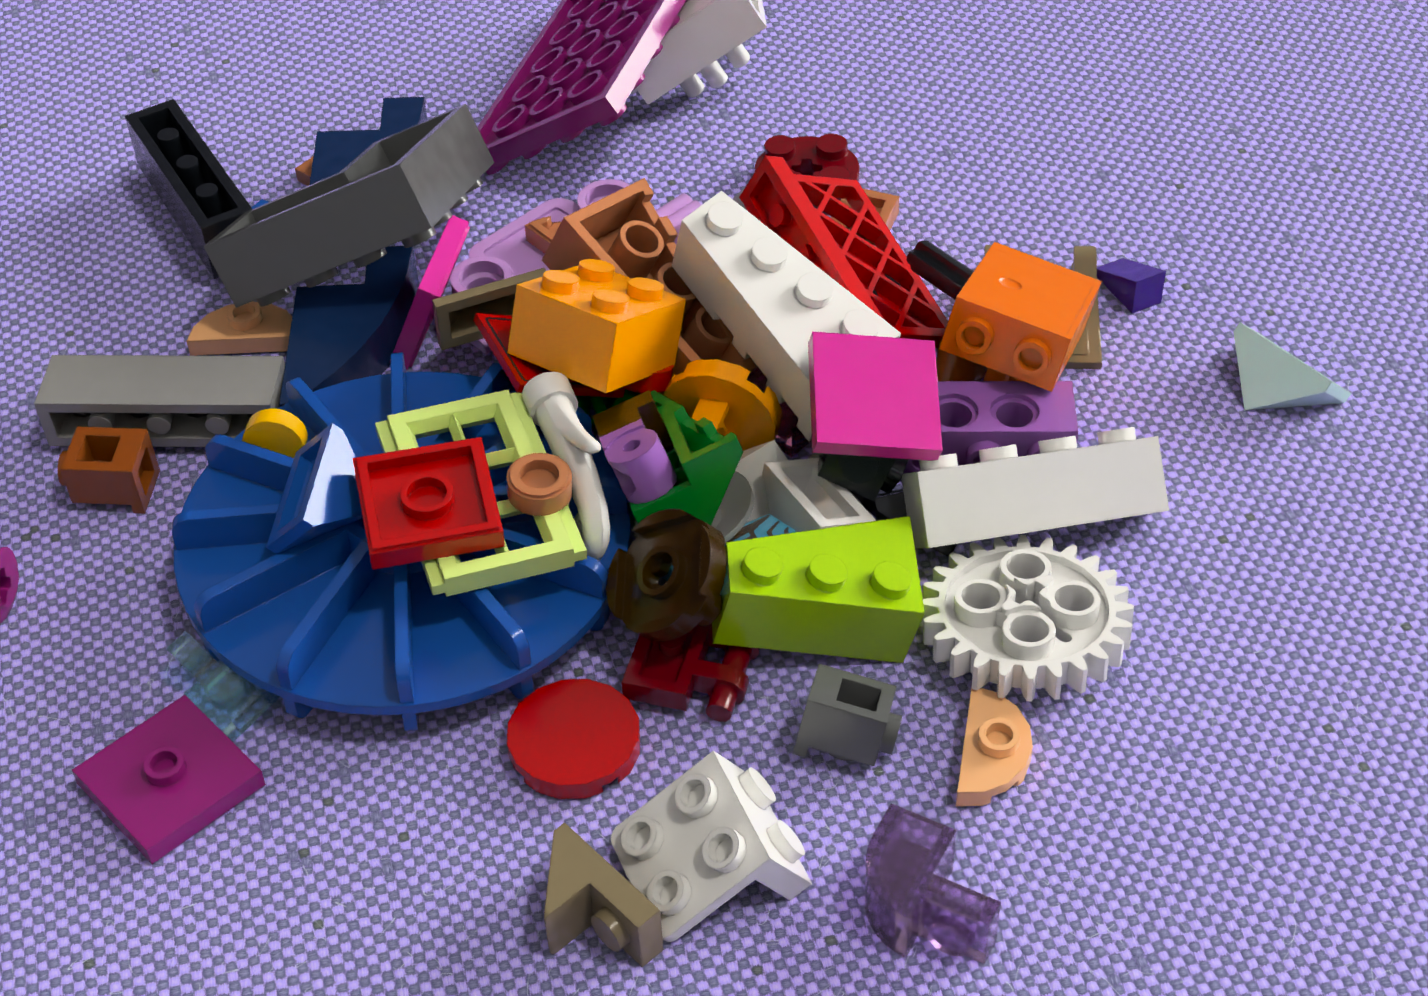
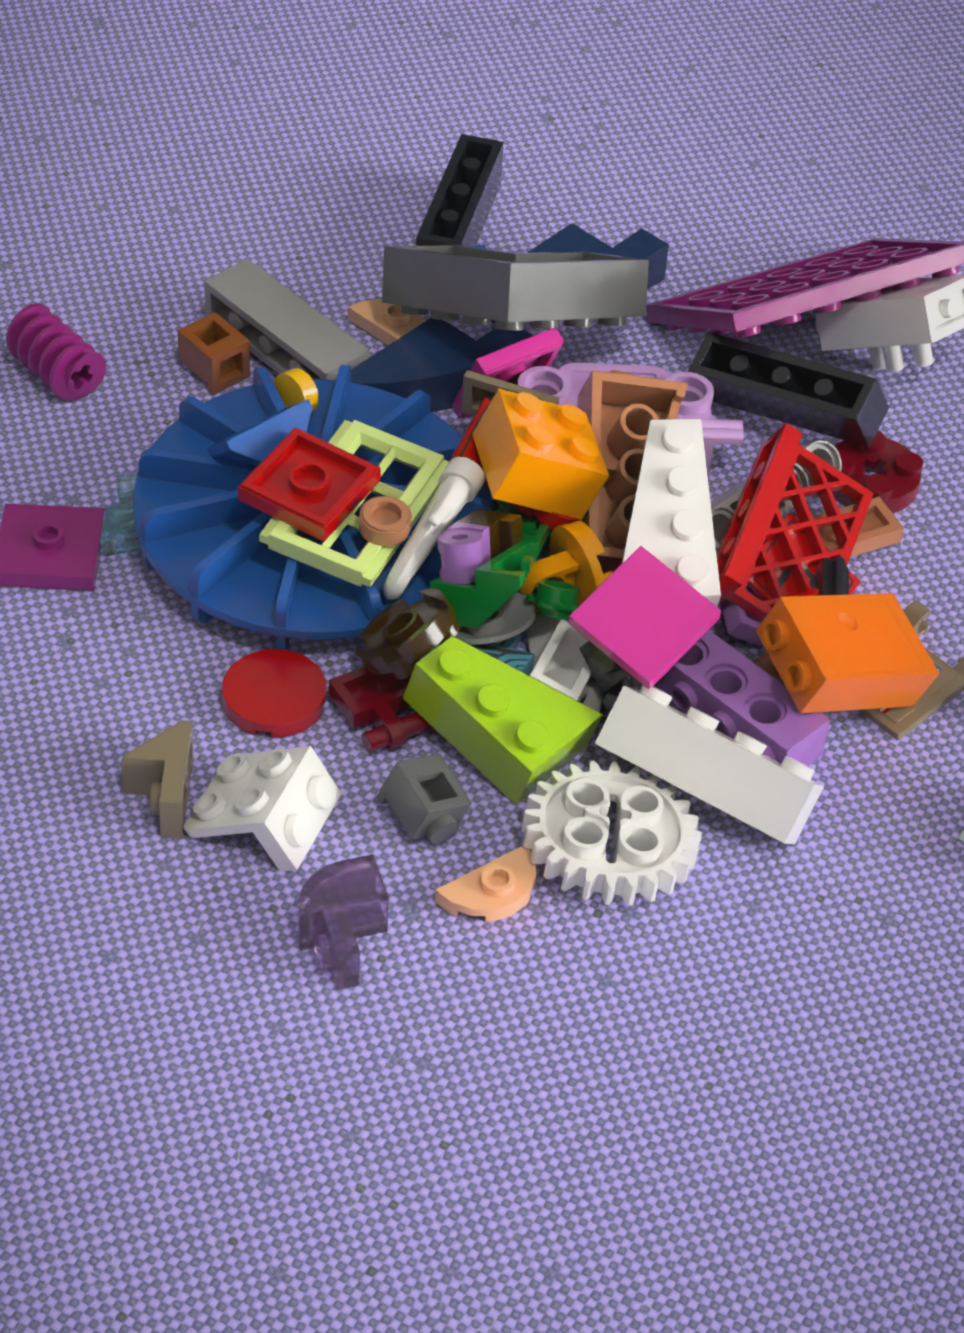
camera: 40 degrees right, 0 degrees up
(688, 140) = (792, 389): none -> black brick
(754, 445) = (555, 598): none -> green plate

